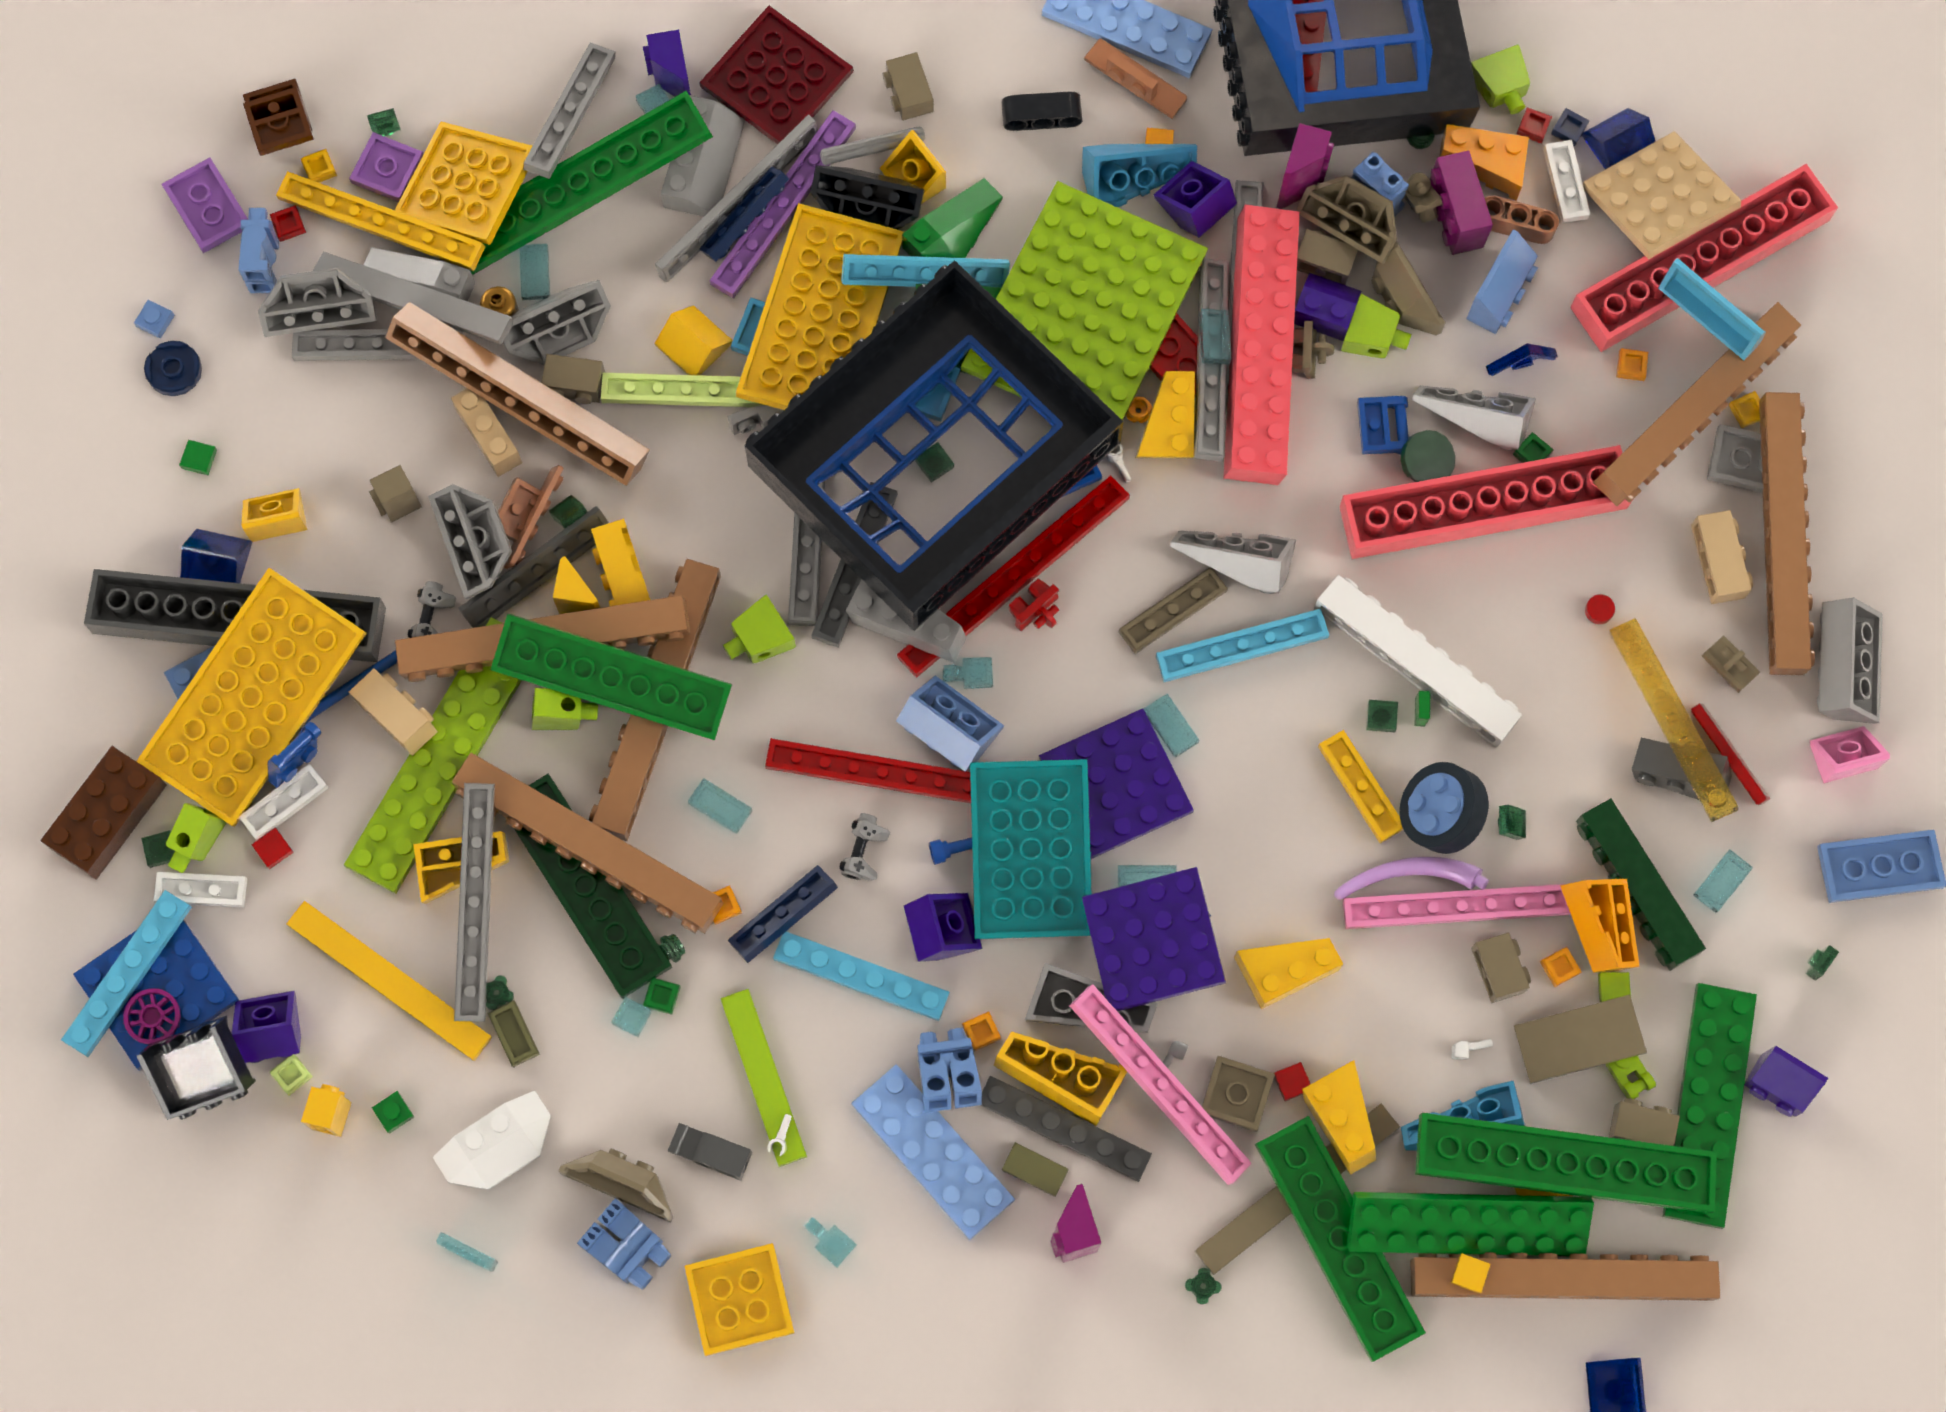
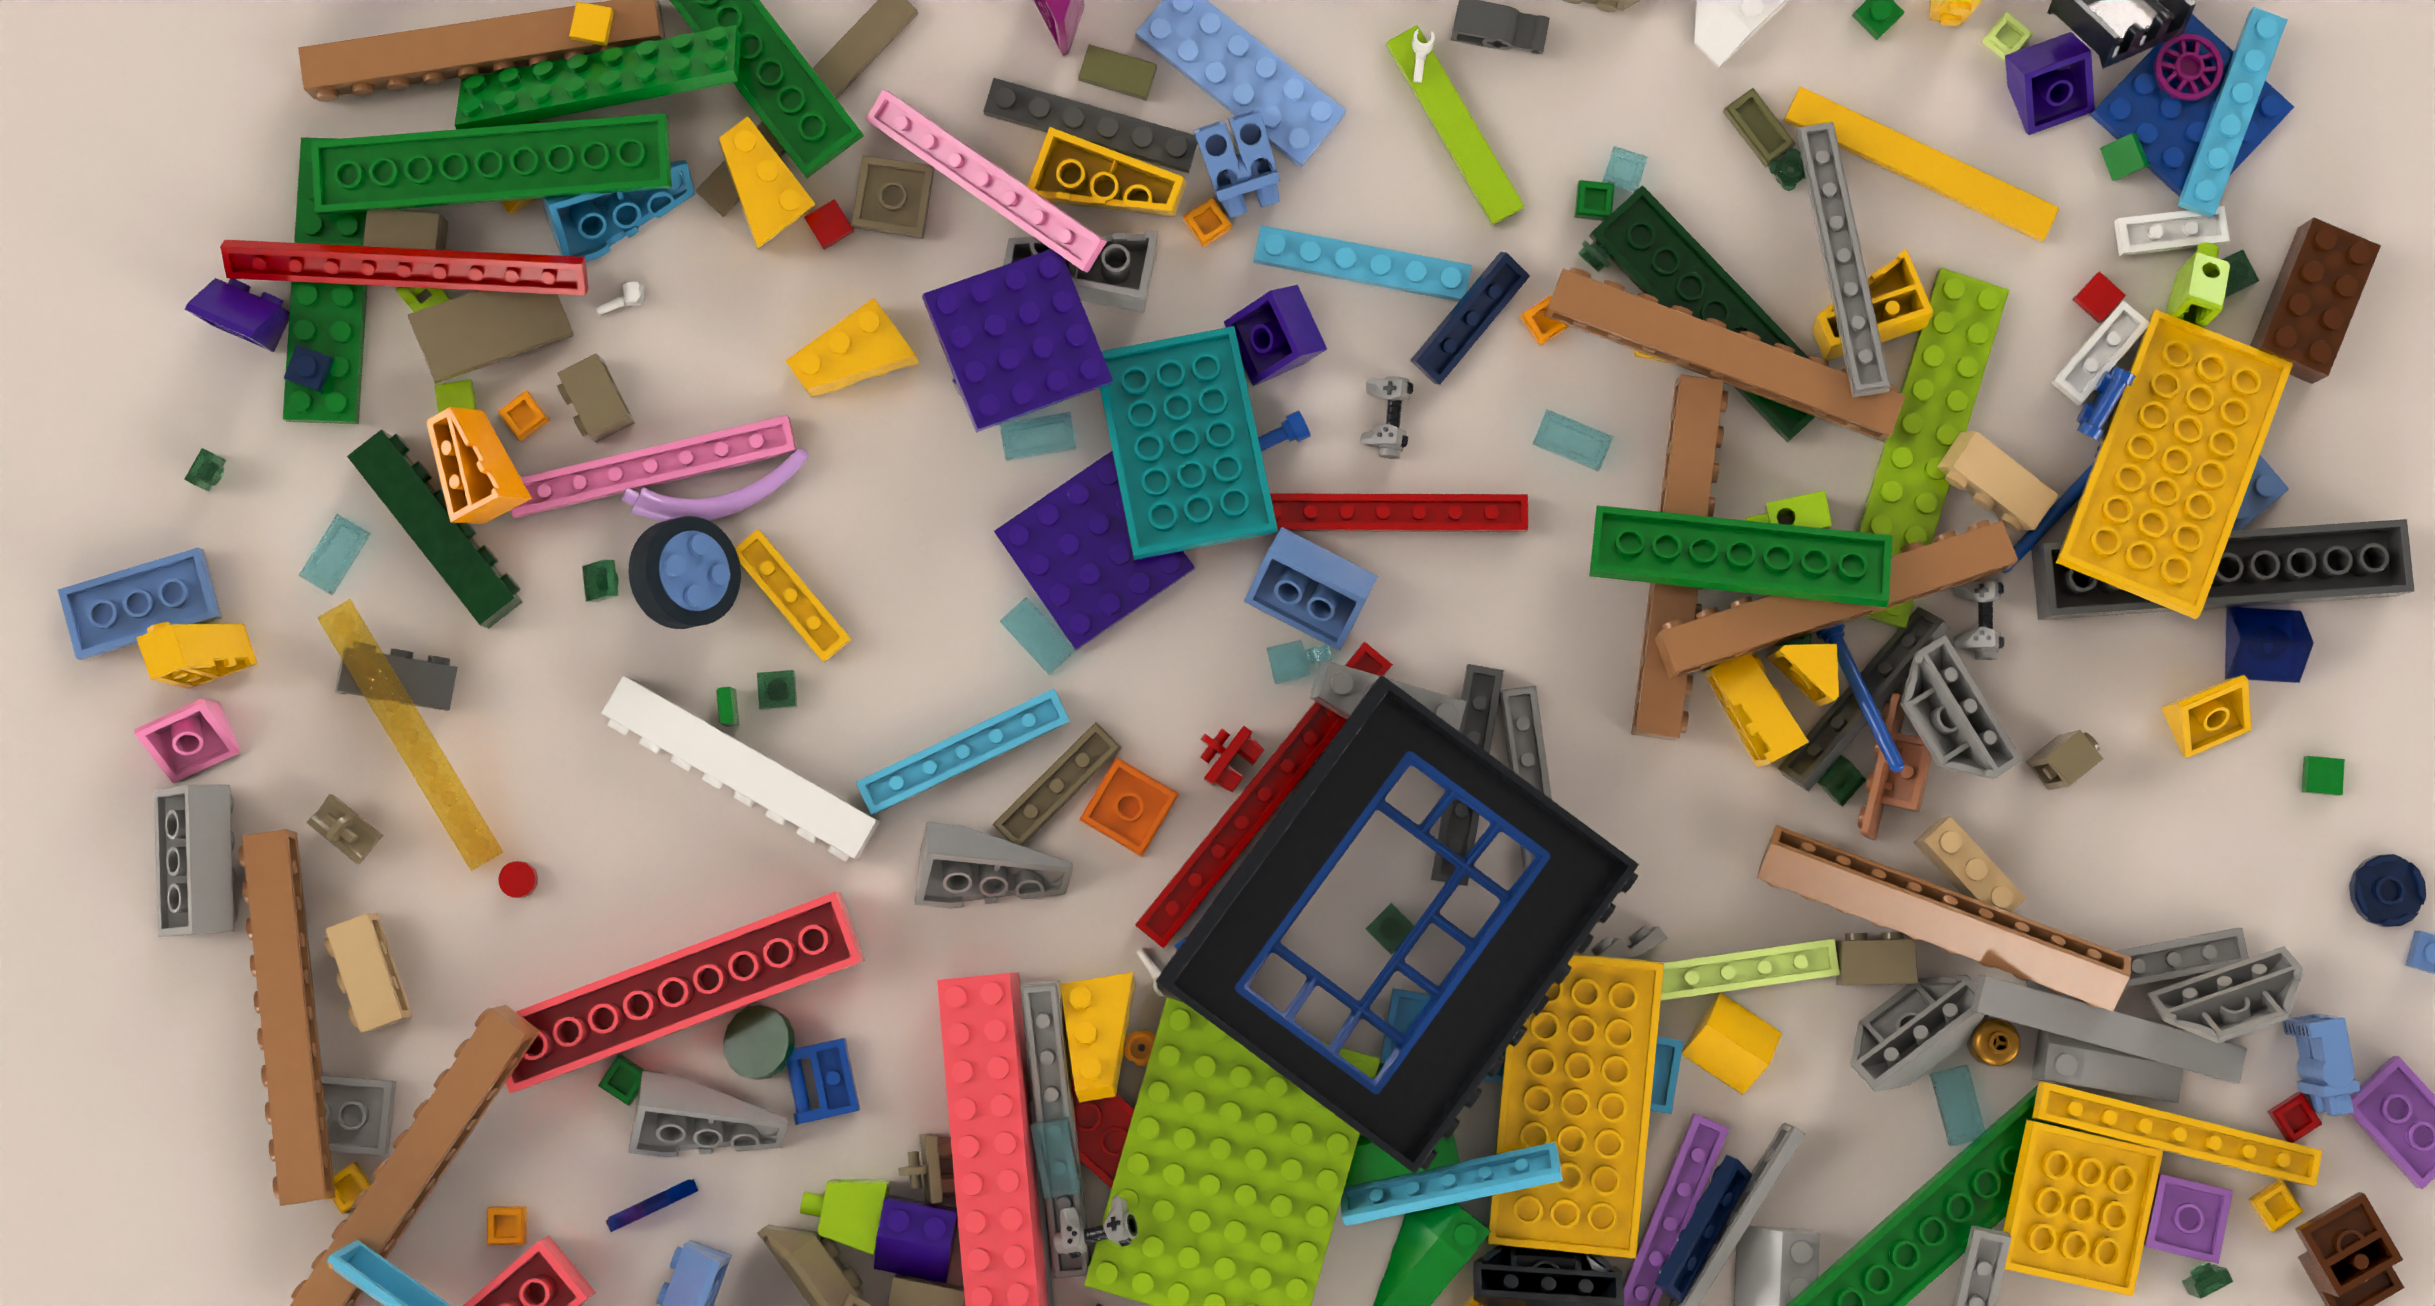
camera: 170 degrees right, 10 degrees up
(222, 955) = (2124, 156): none -> green tile
(537, 557) = (1835, 635): none -> blue piece
(759, 633) = (1568, 663): lime torso -> none
(1119, 585) = (1129, 806): none -> orange tile
(1176, 1050) = (972, 238): light grey hand -> none
(1210, 279) = (1118, 1227): none -> light grey piece
(1646, 1093) = (405, 267): none -> red plate
(1727, 749) = (337, 712): red tile -> none
(1731, 1027) = (309, 368): none -> dark blue plate
(1840, 812) = (195, 652): none -> yellow wedge

